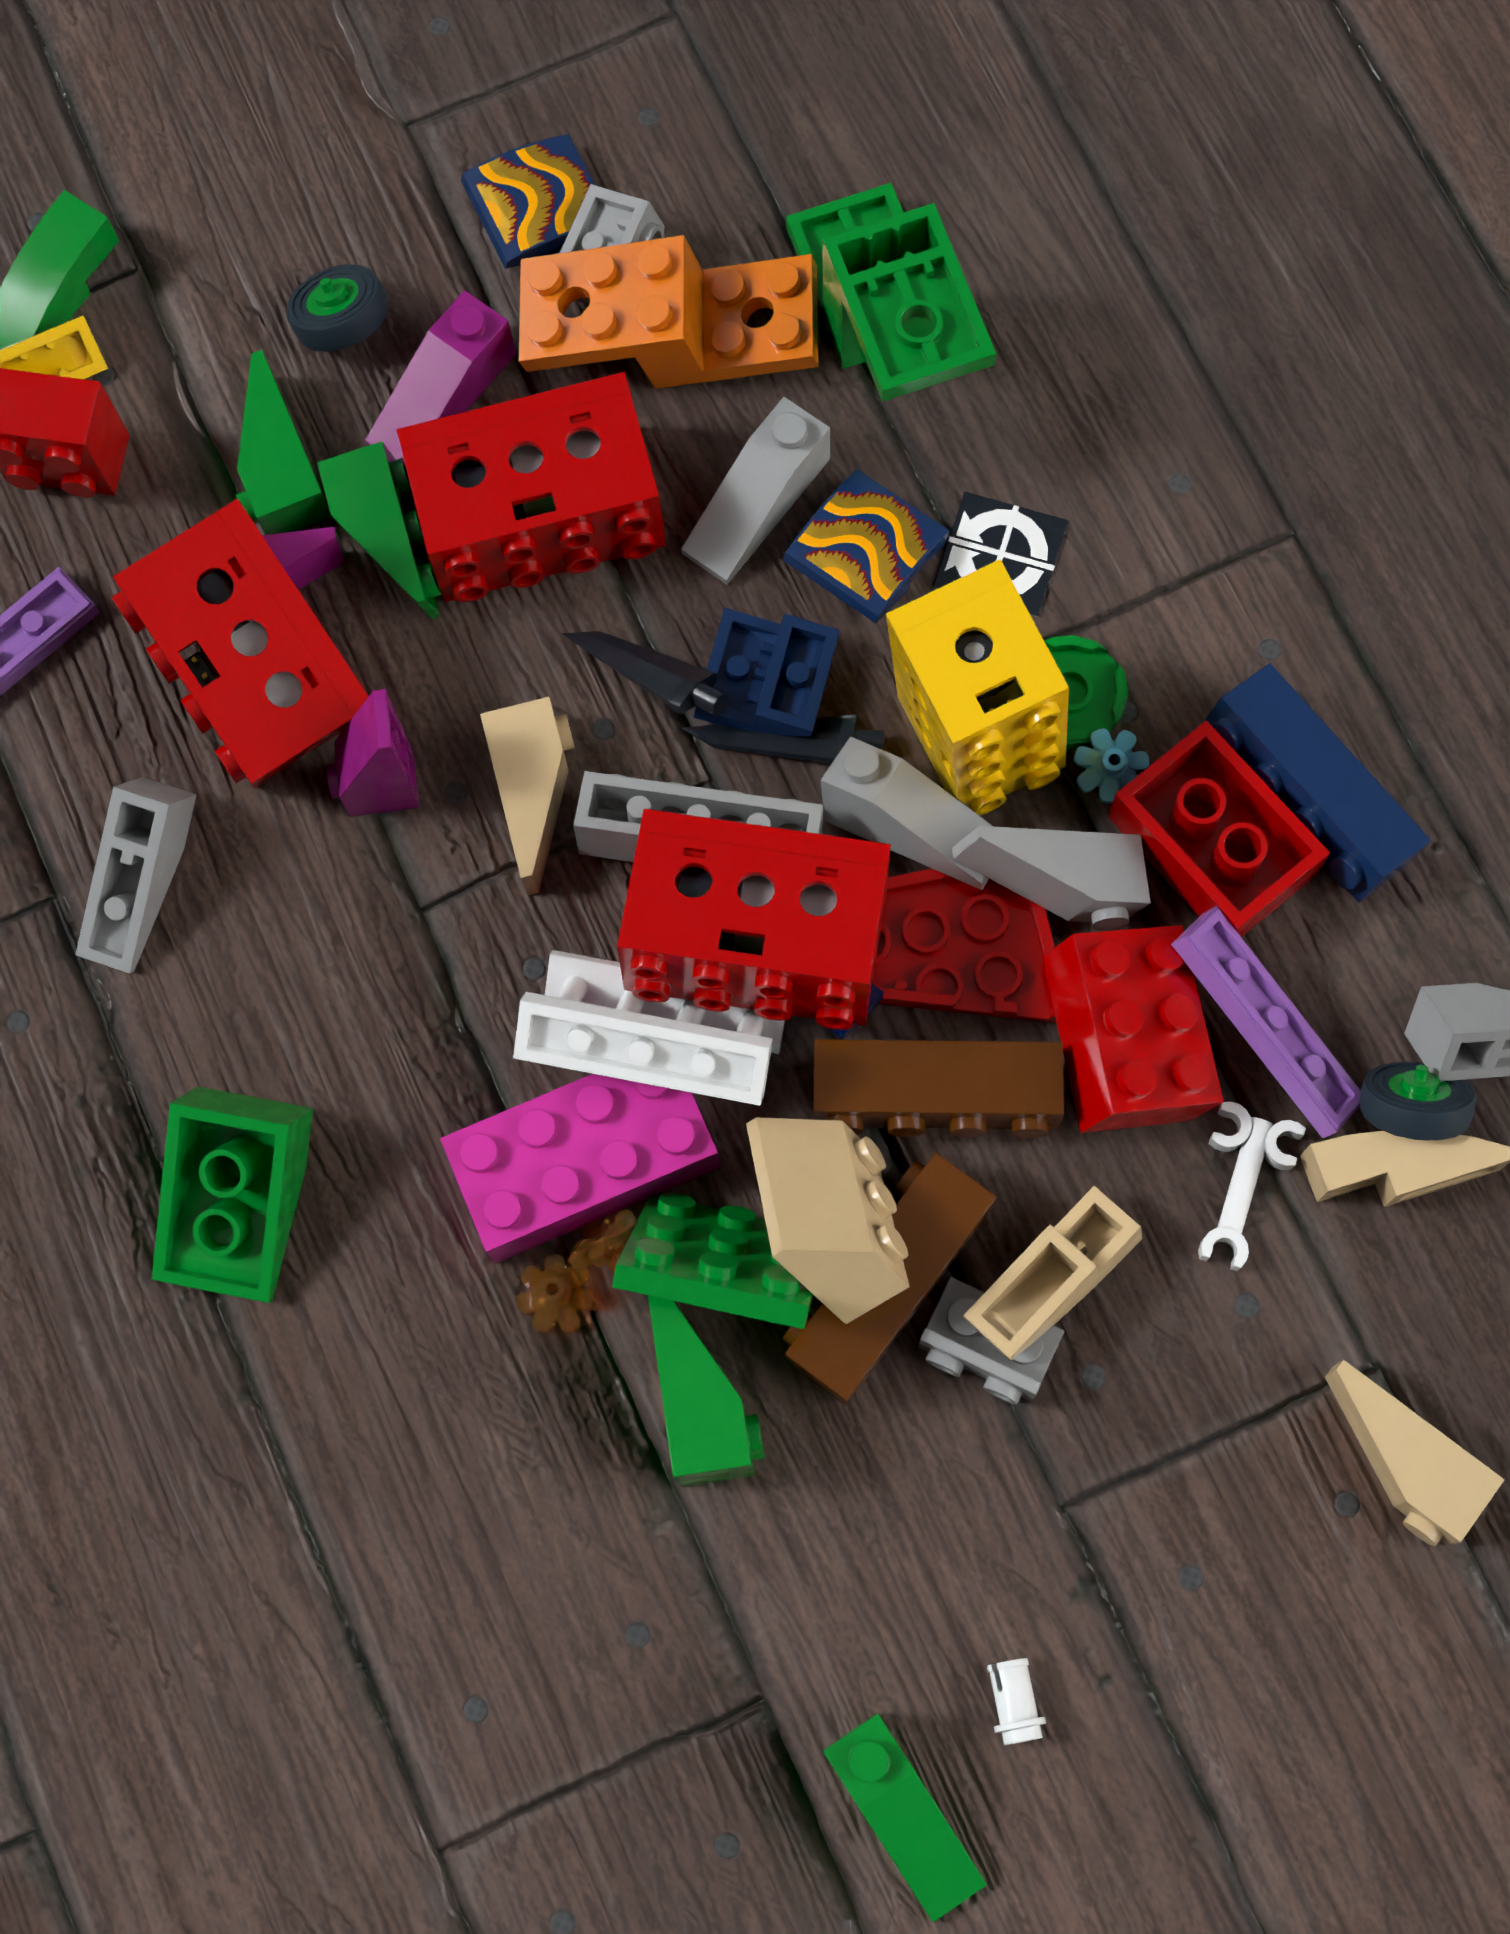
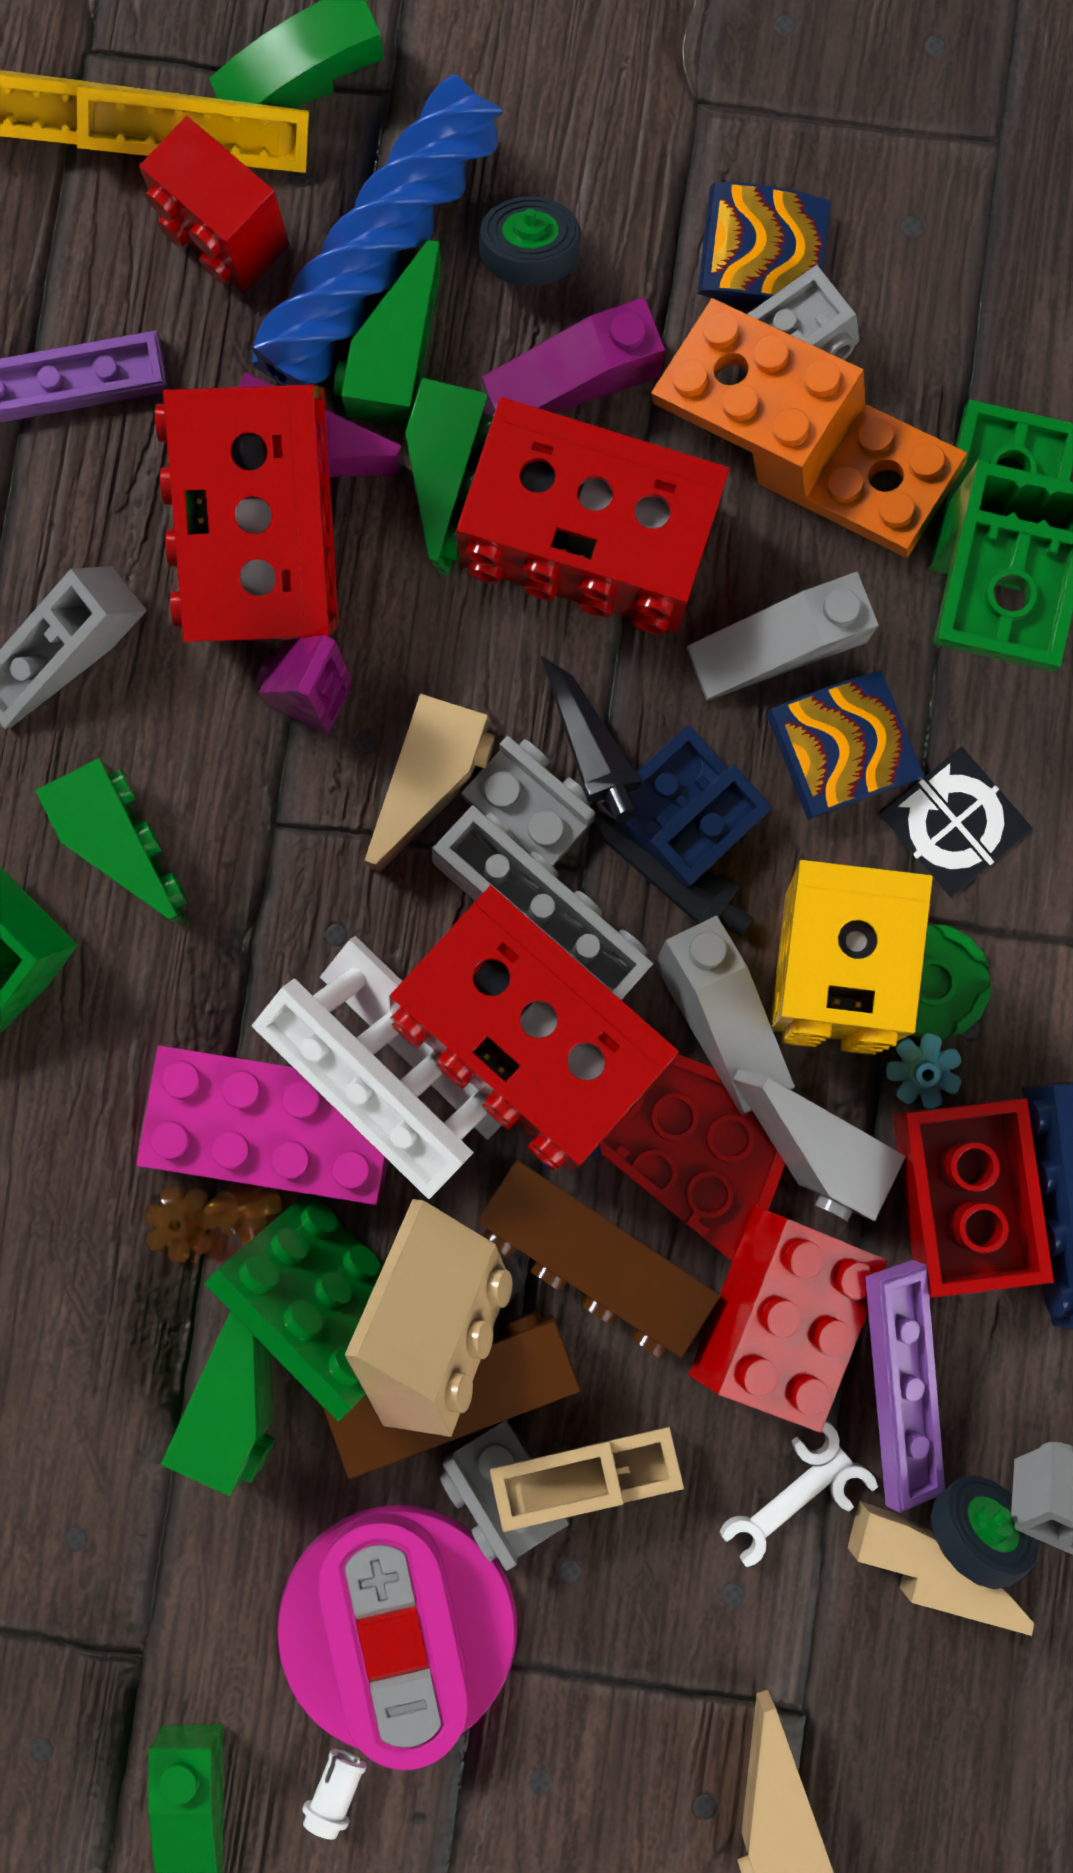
camera: 25 degrees right, 10 degrees up
(202, 359) = (366, 243): none -> blue piece
(279, 1004) = (98, 824): none -> green slope
(631, 743) = (531, 800): none -> light grey bracket
(975, 1526) = (397, 1633): none -> dark pink piece

